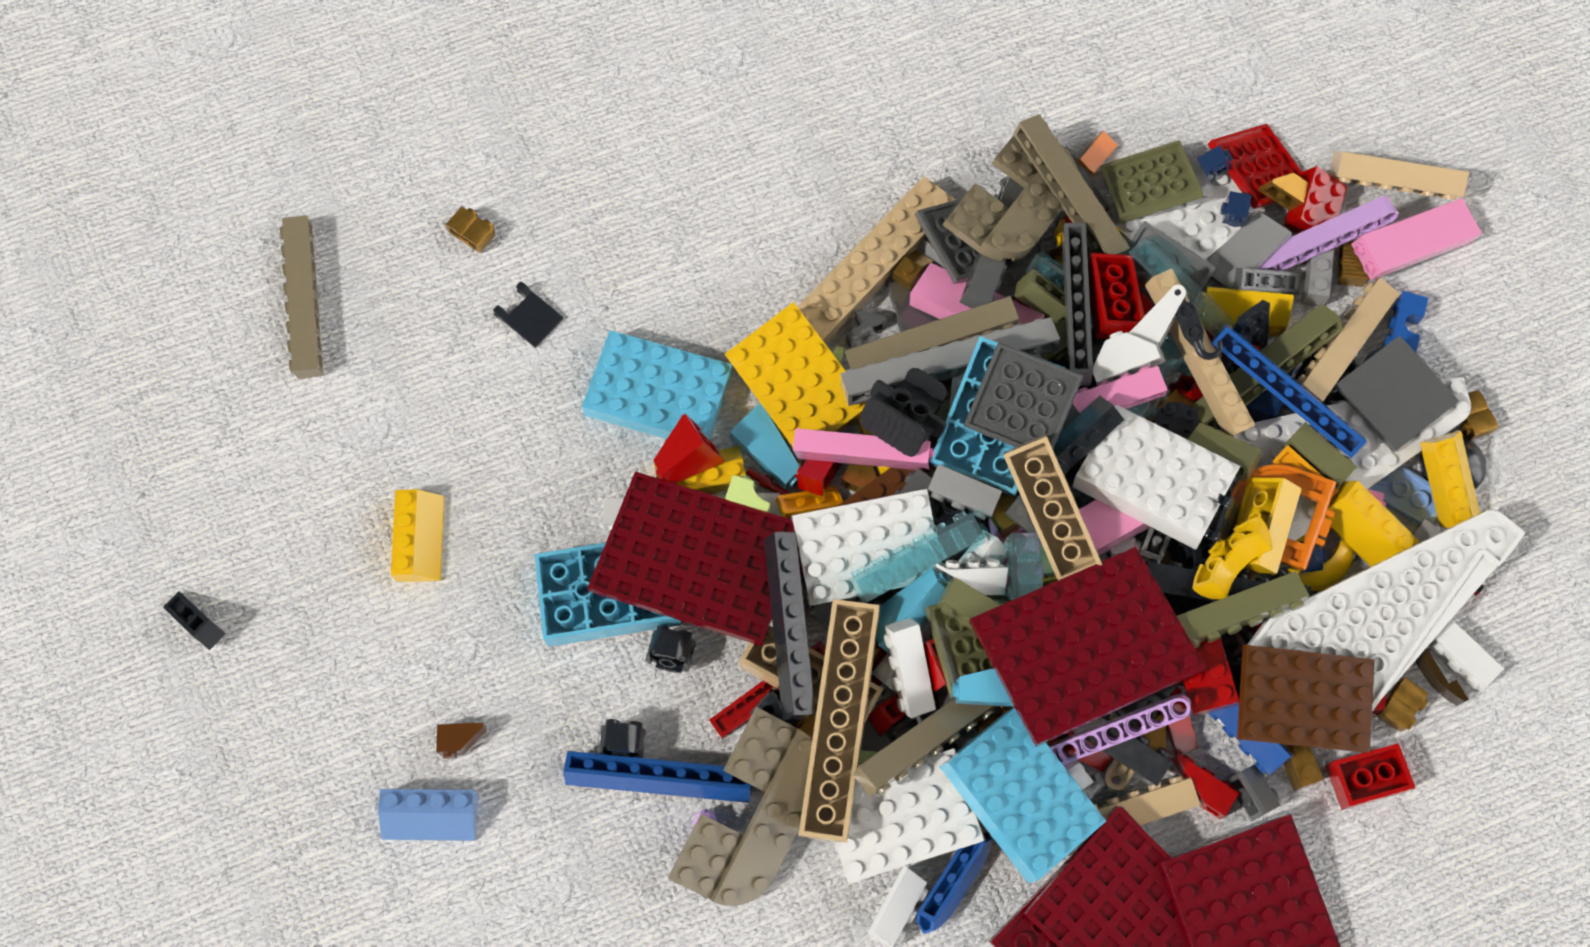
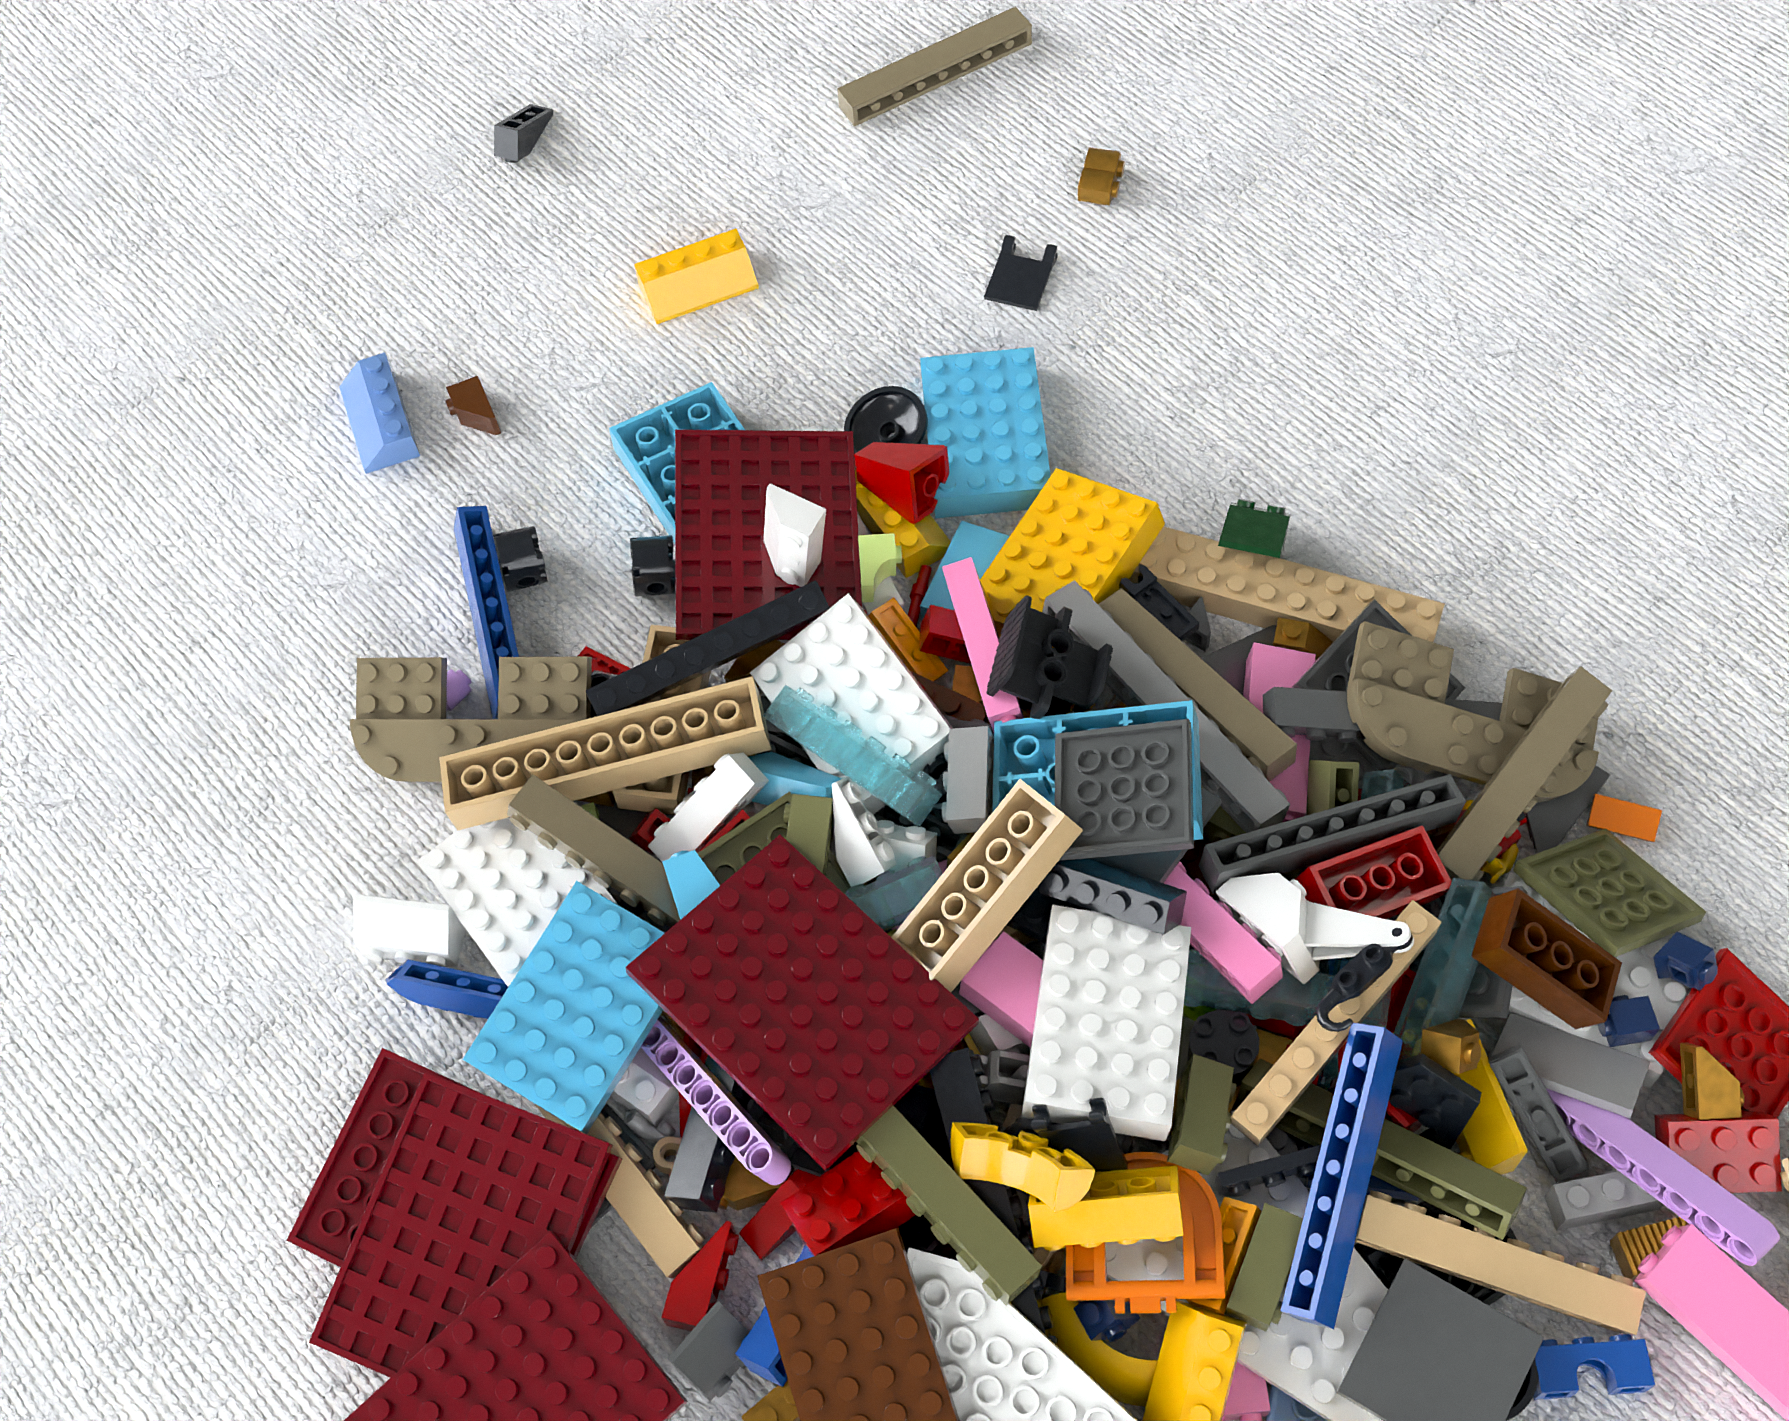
camera: 75 degrees right, 10 degrees down
(614, 440) = (887, 412): none -> black dish
(730, 535) = (793, 535): none -> white slope
(825, 257) = (1255, 528): none -> dark green slope
(860, 334) = (1160, 603): none -> black plate
(1196, 229) = (1547, 959): none -> reddish brown brick
(1231, 300) = (1452, 1045): none -> pearl gold slope
(1267, 428) = (1268, 1171): none -> black plate

